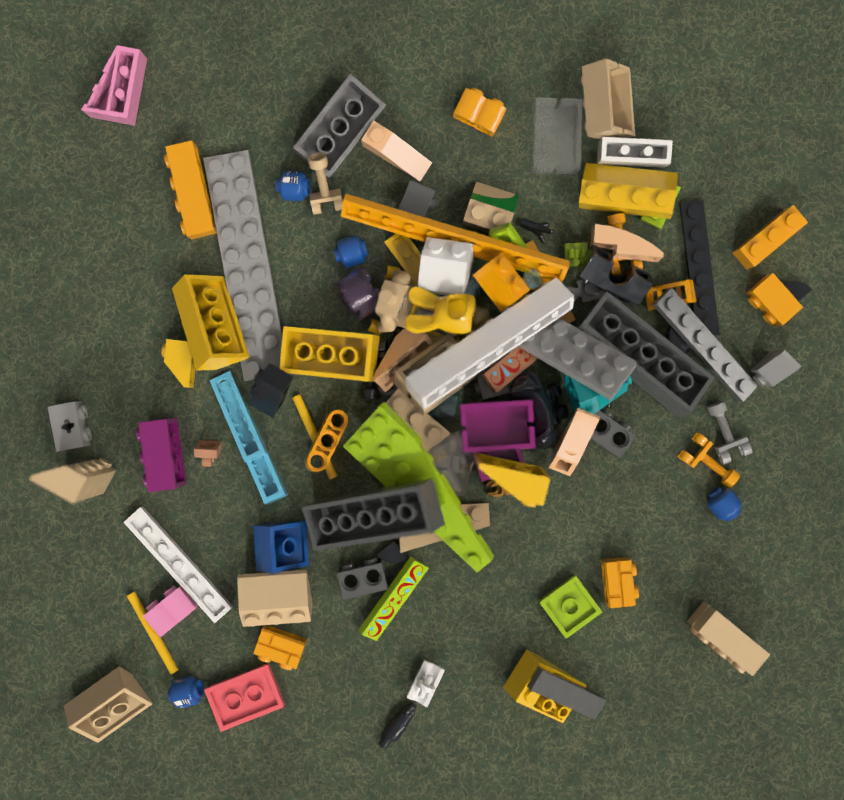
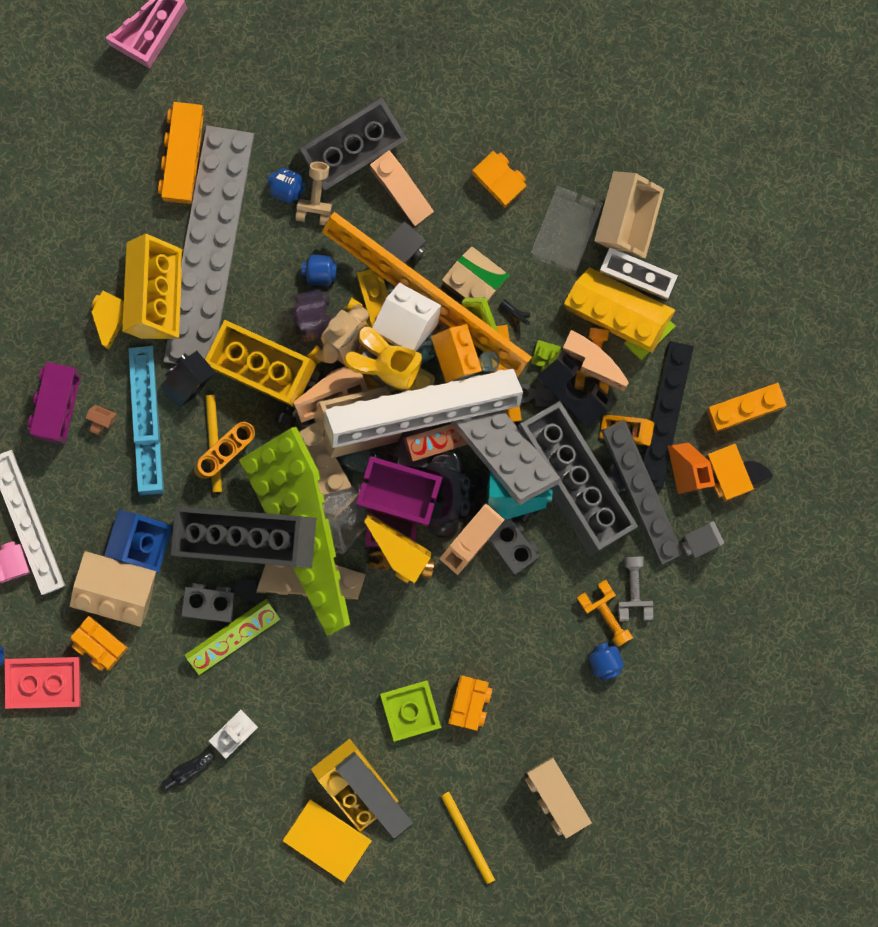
camera: 25 degrees right, 5 degrees down
(538, 741) = (327, 840): none -> yellow tile
(657, 695) = (467, 837): none -> yellow bar
(740, 309) = (690, 468): none -> orange slope

